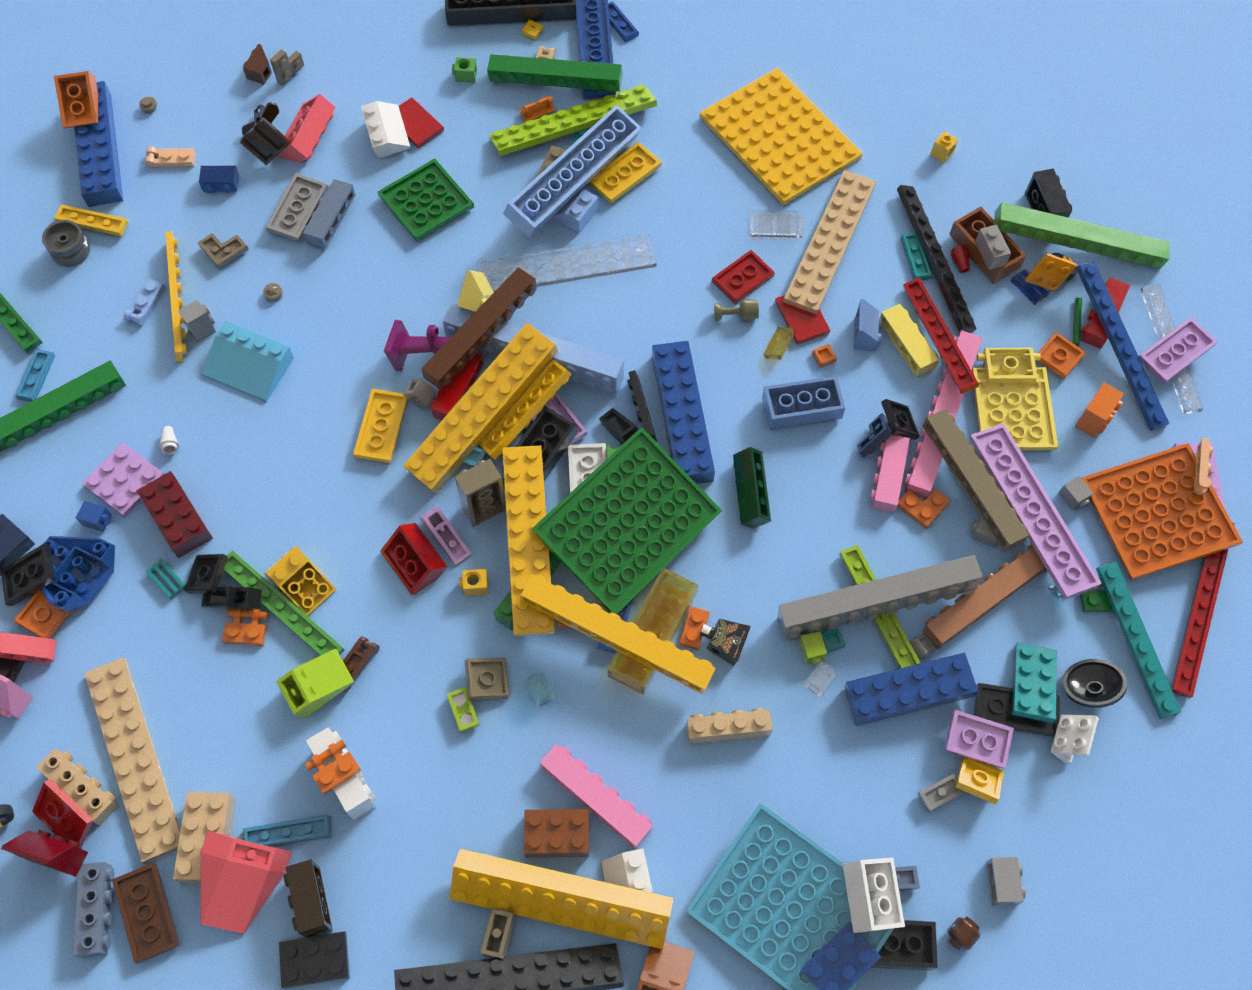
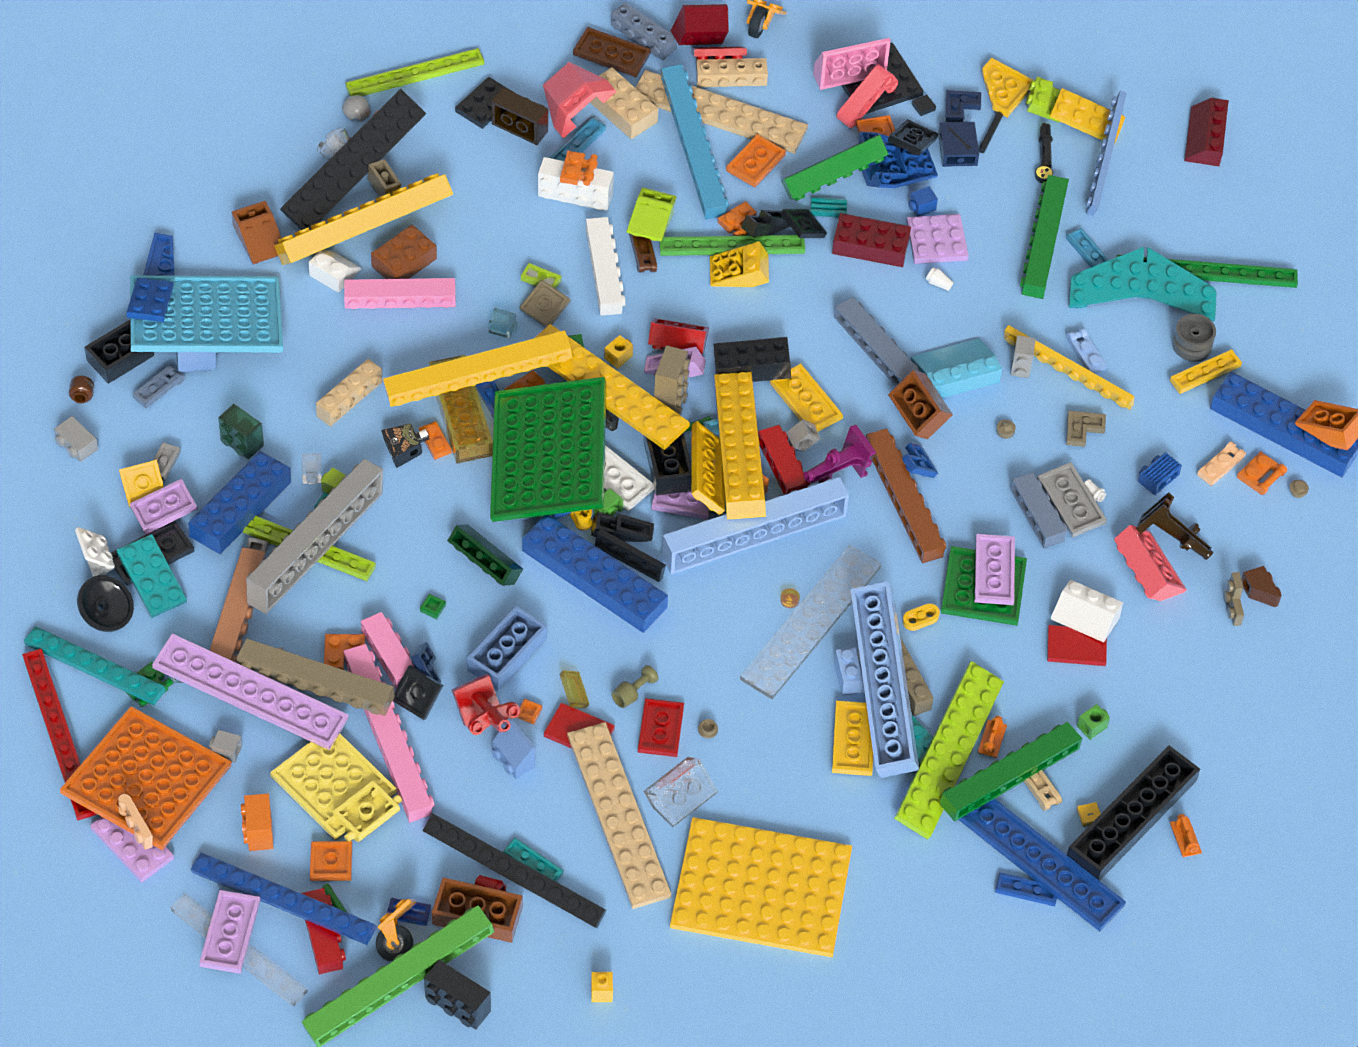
camera: 135 degrees right, 10 degrees down
(33, 318) = (1154, 279): none -> teal wing
(122, 596) = (834, 167): none -> brick
(155, 136) = (1257, 469): none -> orange plate
(166, 673) = (756, 160): none -> orange plate
(193, 736) = (693, 141): none -> dark azure brick
(274, 198) = (1097, 493): none -> white pin
(278, 426) = (874, 340): none -> sand blue brick
(313, 342) = (920, 404): none -> dark orange brick
(364, 305) = (918, 462): none -> blue plate
(388, 480) = (763, 357): none -> black brick
(401, 296) = (905, 497): none -> dark orange brick
(401, 675) = (604, 266): none -> white brick
(410, 194) = (994, 569): none -> lavender plate
(474, 291) = (839, 519): light yellow slope -> none
(479, 328) = (802, 486): reddish brown brick -> none
(492, 210) = (919, 616): none -> yellow plate
(561, 294) = (789, 598): none -> clear yellow tile
(713, 250) = (708, 728): none -> dark tan plate
(823, 487) = (432, 606): none -> green tile
(858, 757) = (240, 431): none -> clear green brick
(862, 378) = (481, 708): none -> red piece
(873, 894) = (159, 334): white slope -> none
(909, 340) = (470, 772): light yellow brick -> none
(941, 336) = (446, 785): red plate -> none
(992, 247) = (464, 883): light grey brick -> none

